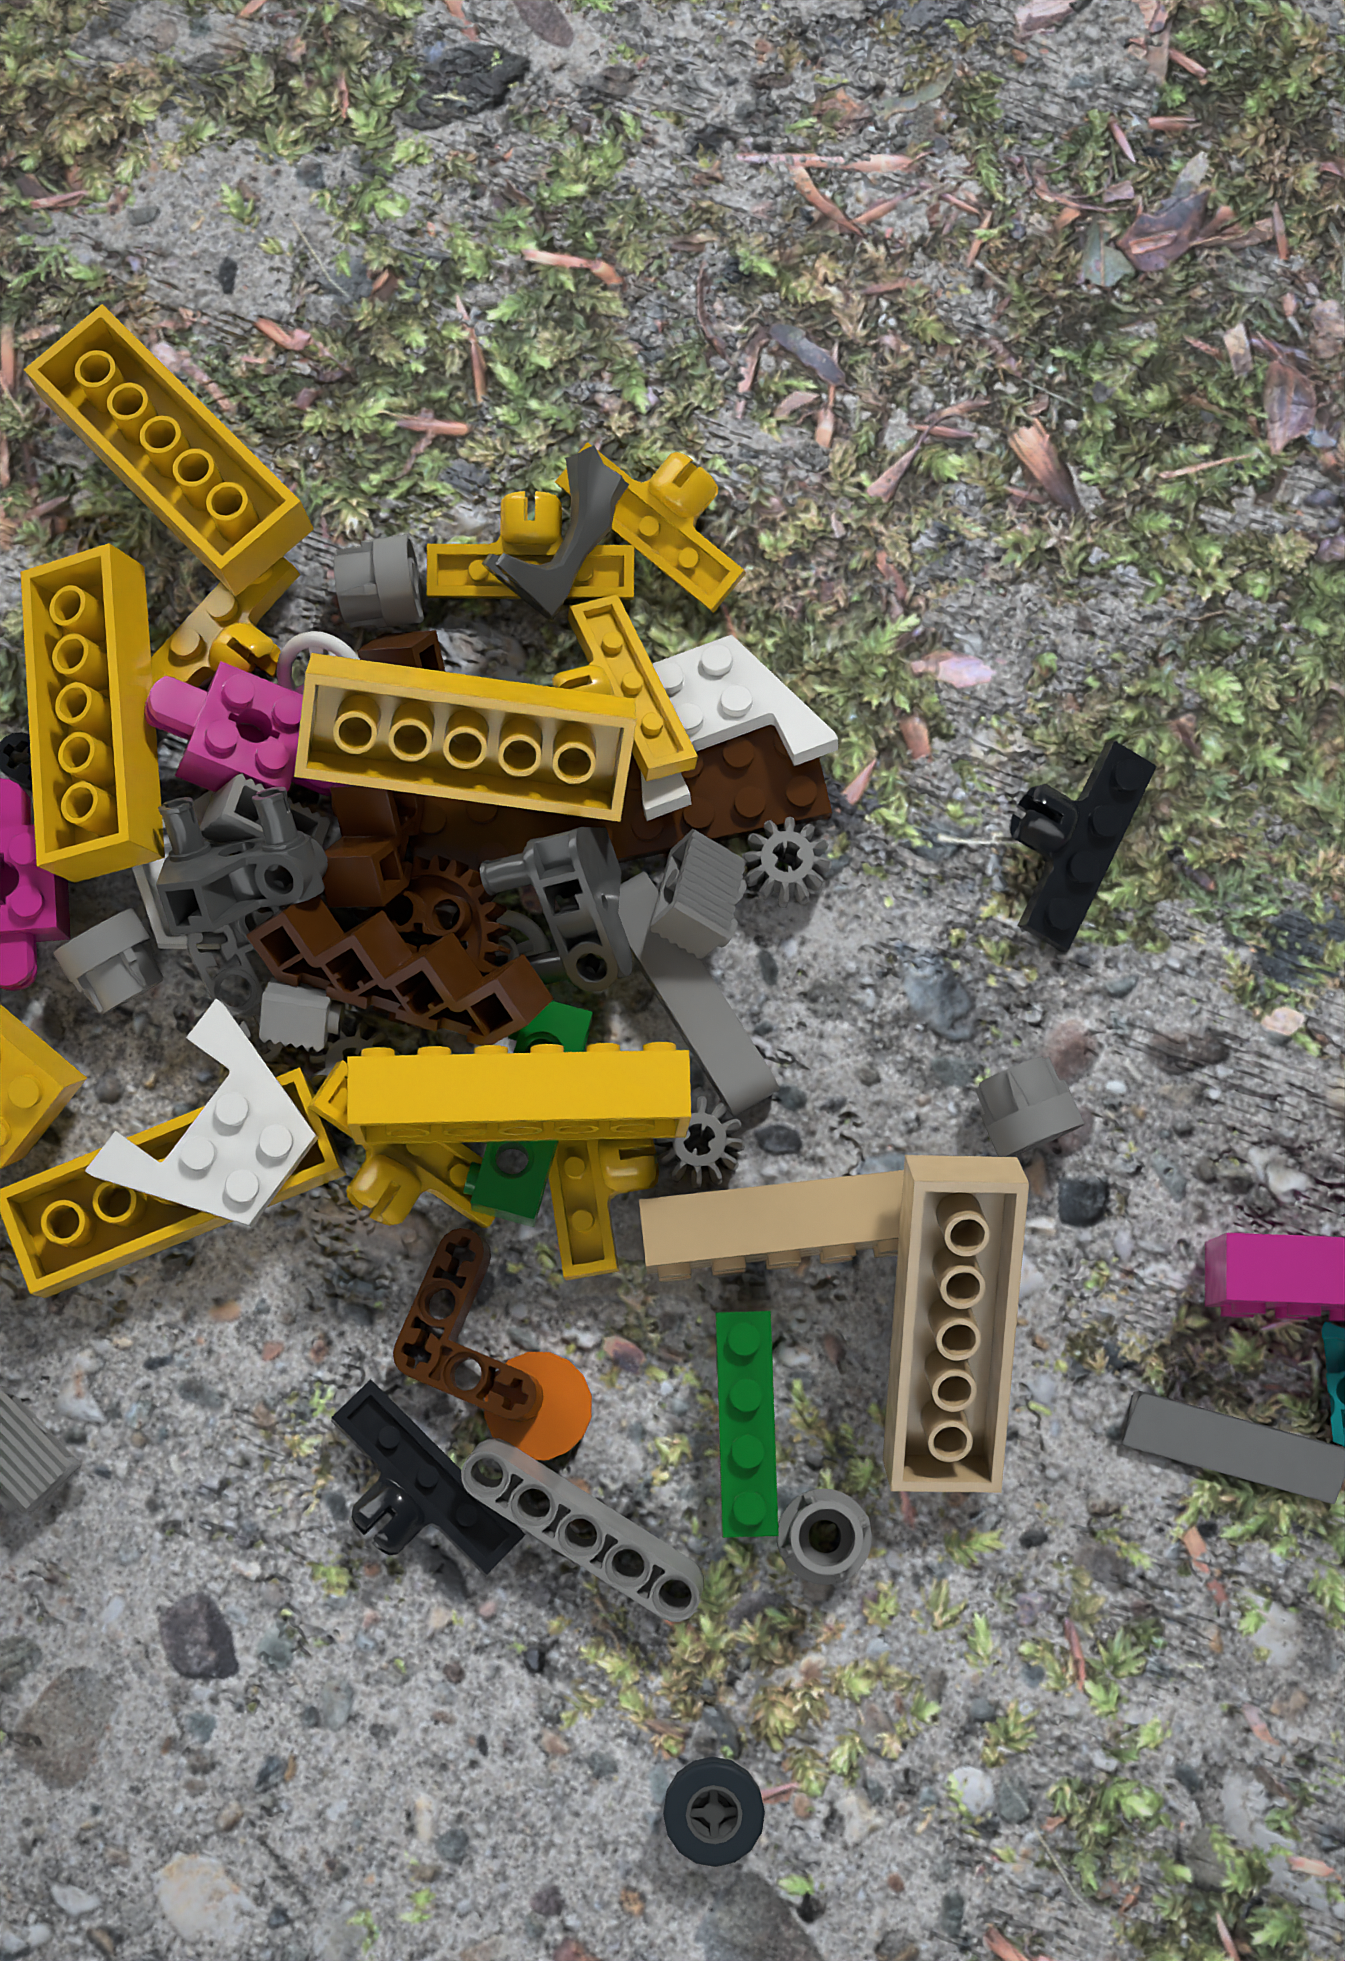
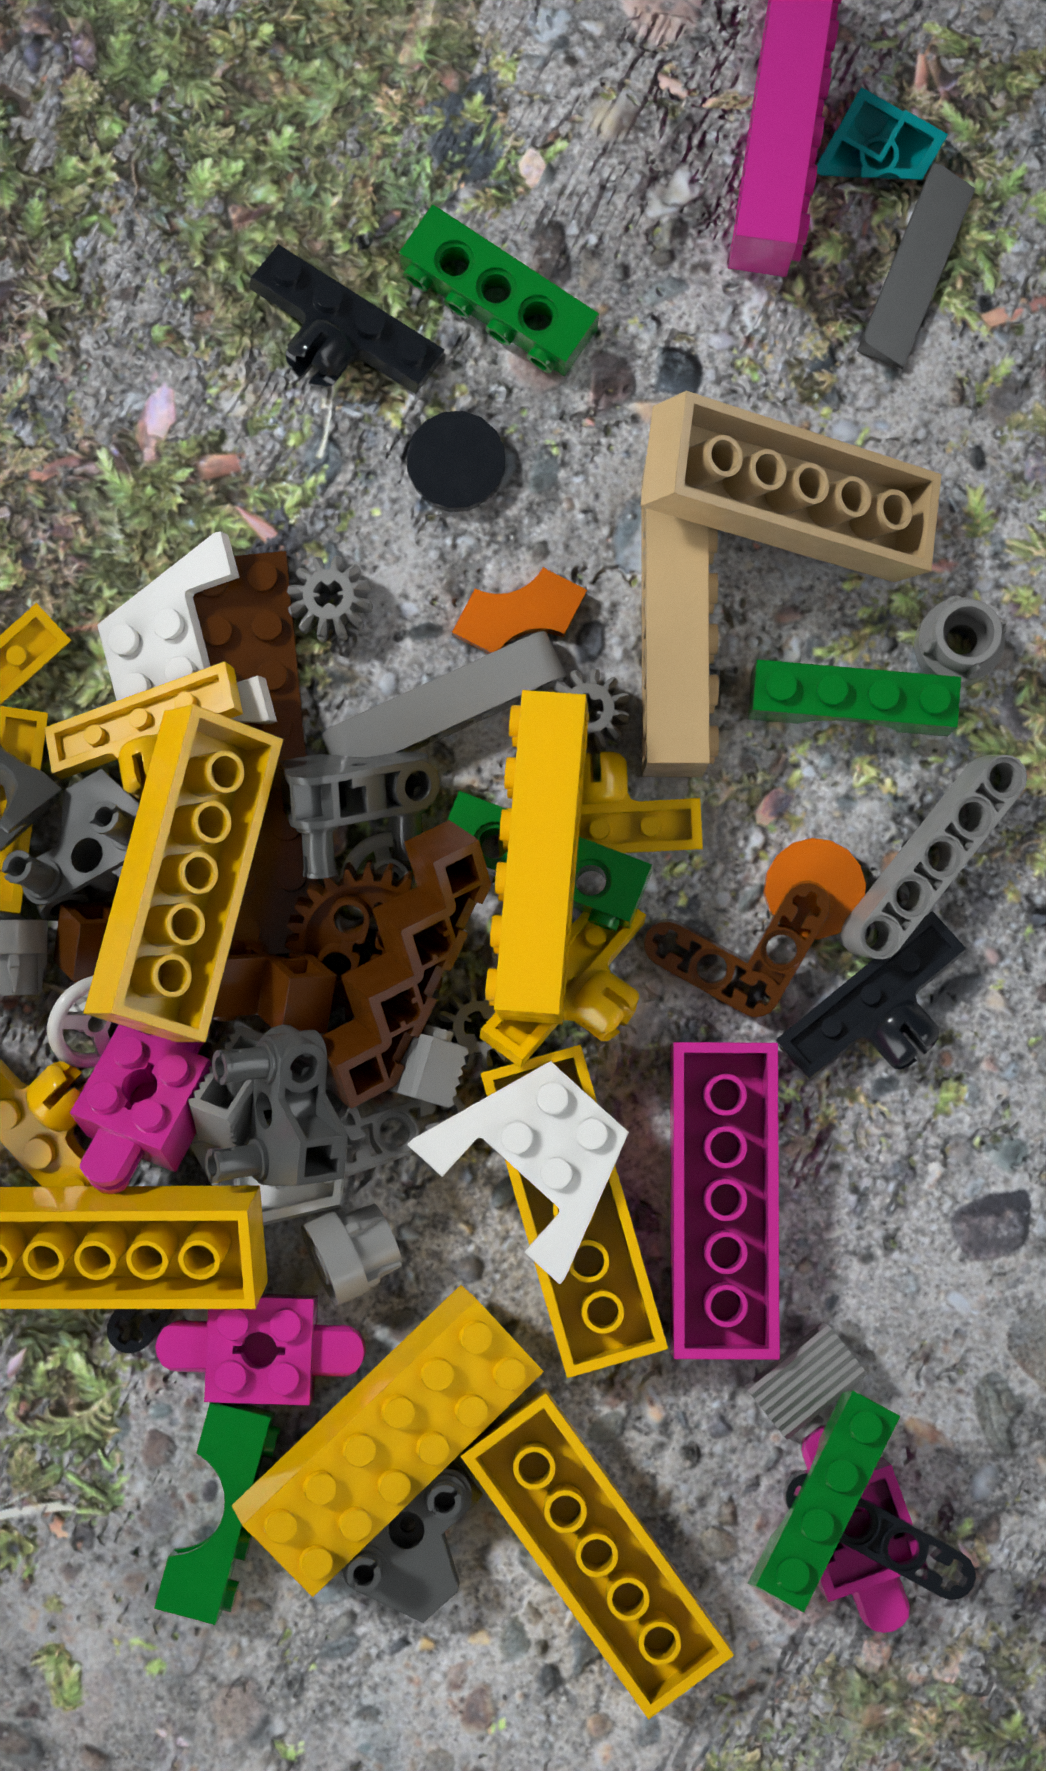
camera: 85 degrees left, 5 degrees up
(193, 1339) = (724, 1201): none -> dark pink brick
(490, 648) = (91, 850): none -> dark grey piece
(699, 895) = (355, 680): light grey brick -> none
(808, 1082) = (497, 619): none -> orange tile
(951, 976) = (456, 461): none -> black tile
(1027, 1107) = (592, 404): light grey piece -> none
(1185, 931) = (444, 239): none -> green brick

